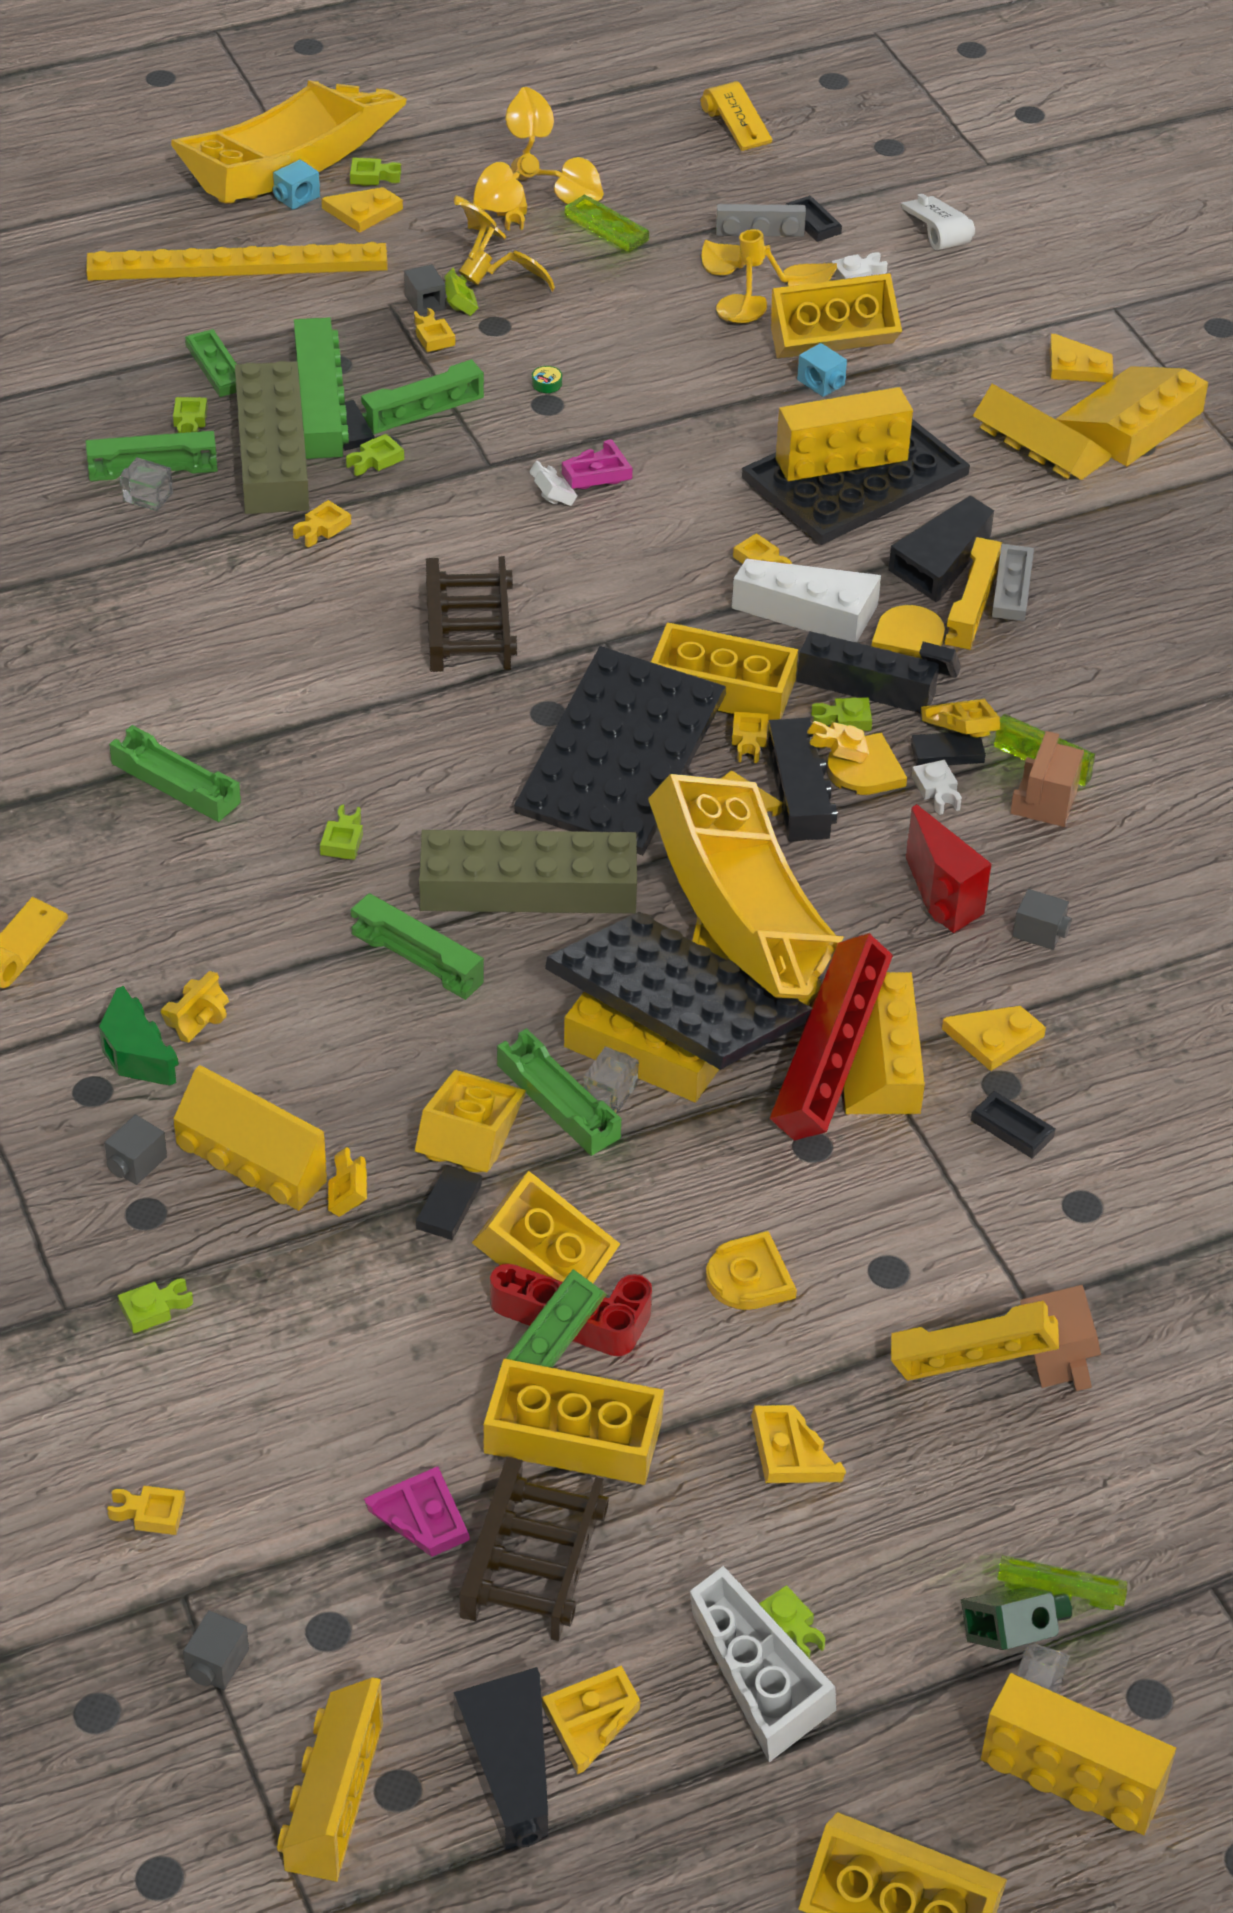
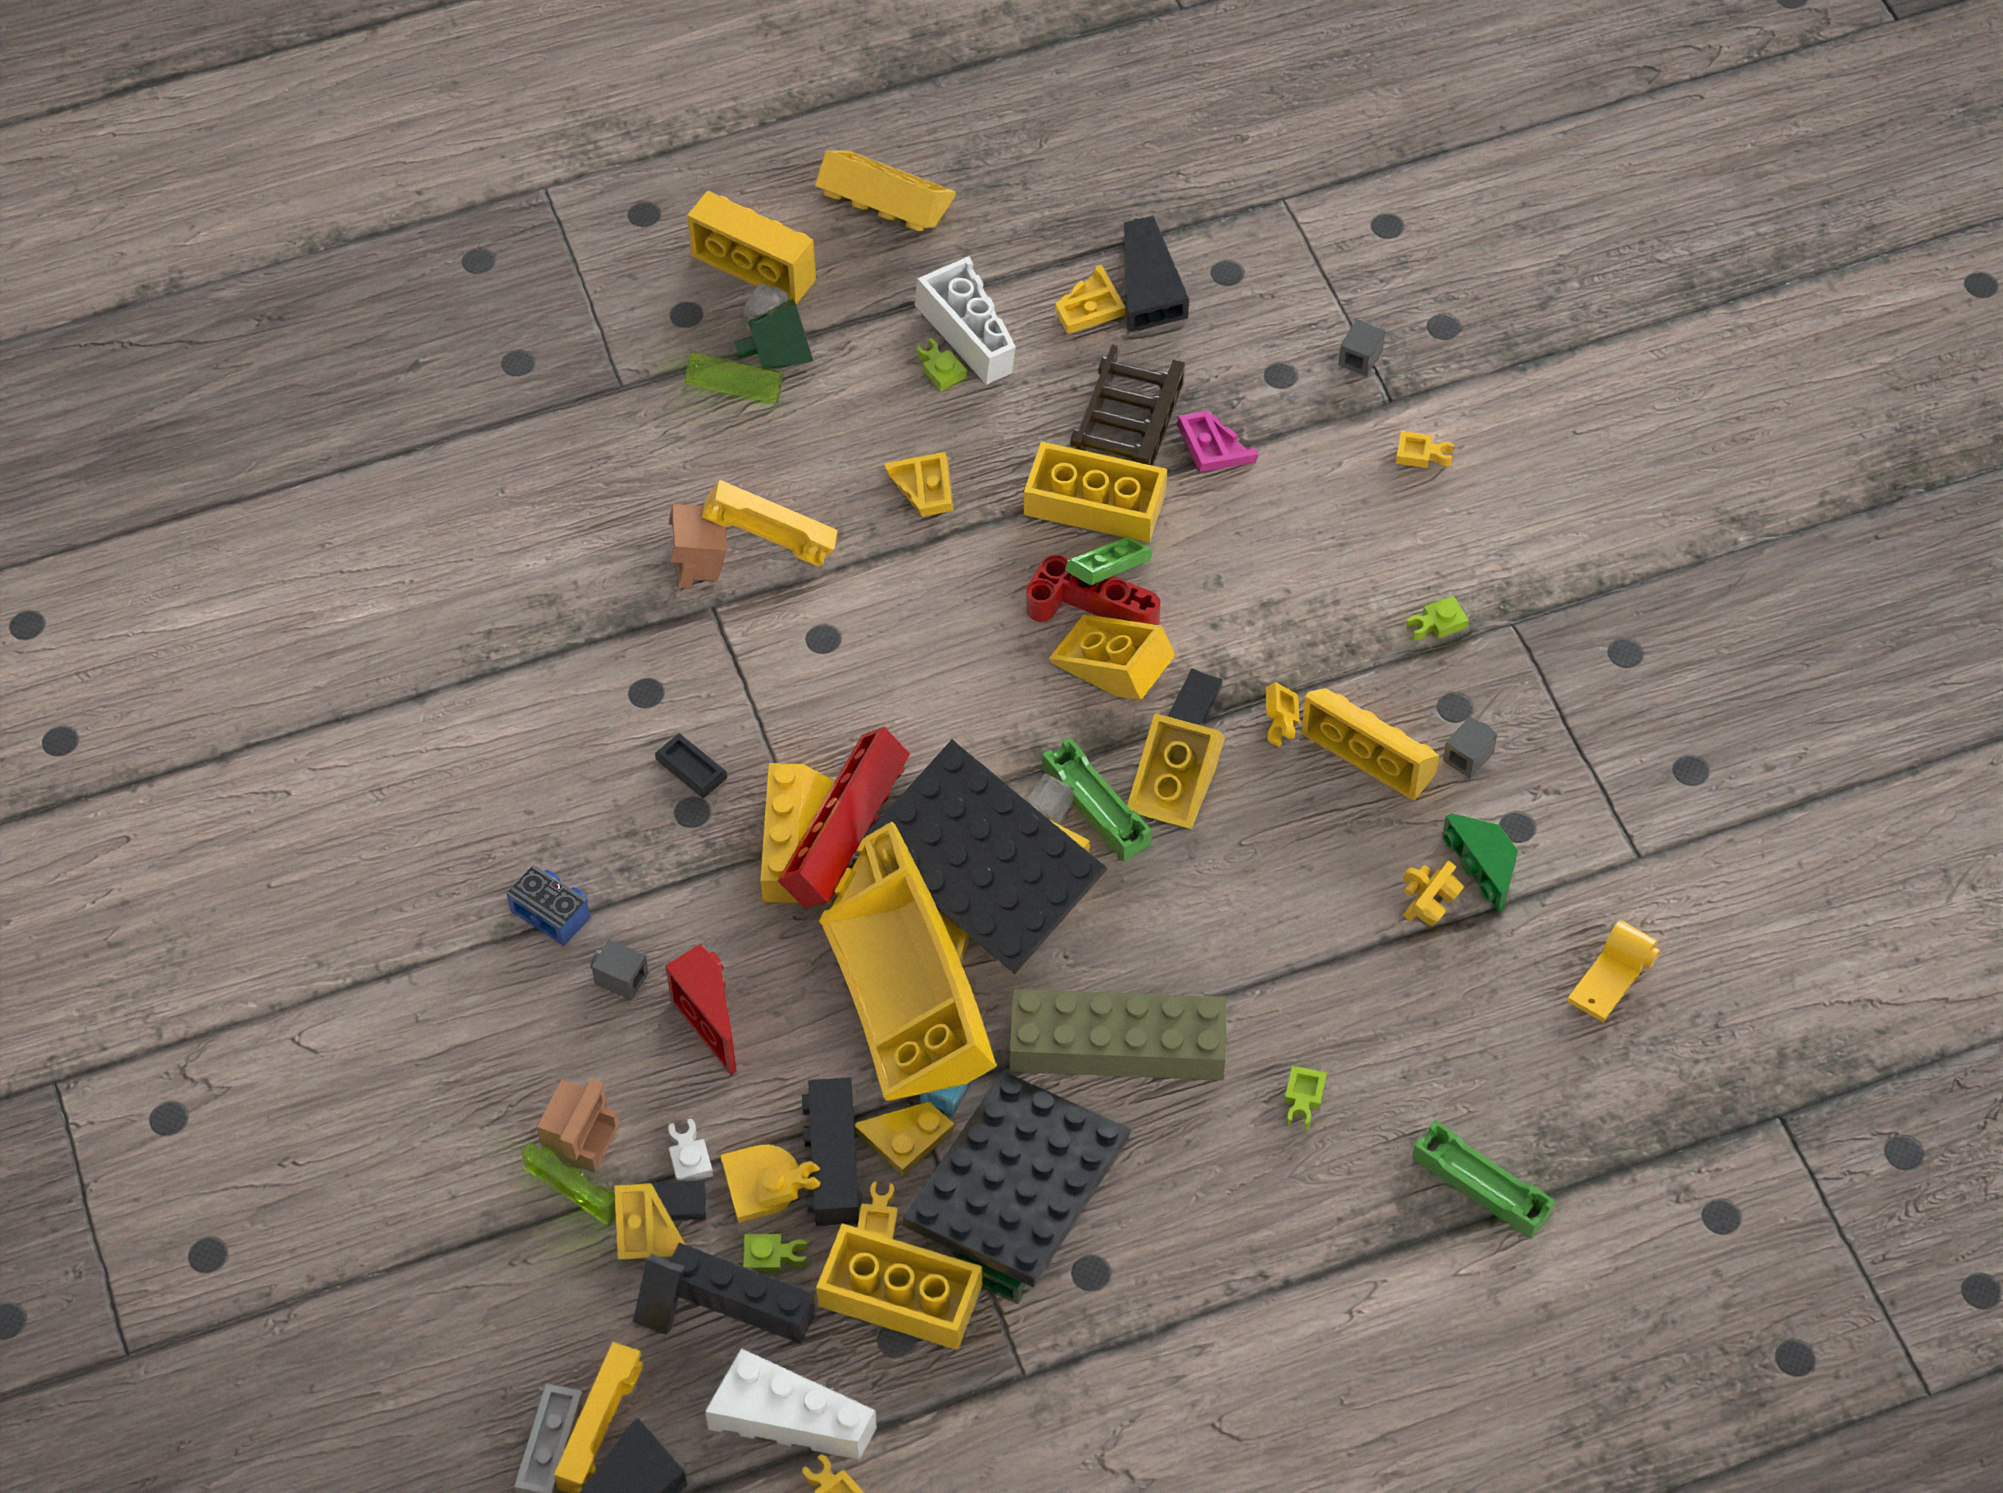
camera: 175 degrees left, 10 degrees up
(333, 1781) = (1272, 253): yellow slope -> none
(387, 926) = (1257, 977): bright green piece -> none
(440, 625) = (1208, 1382): dark brown fence -> none
(749, 1273) = (941, 634): yellow tile -> none
(906, 627) = (680, 1371): yellow tile -> none
(994, 1034) = (687, 856): yellow wing -> none
(1130, 974) = (549, 904): none -> brick

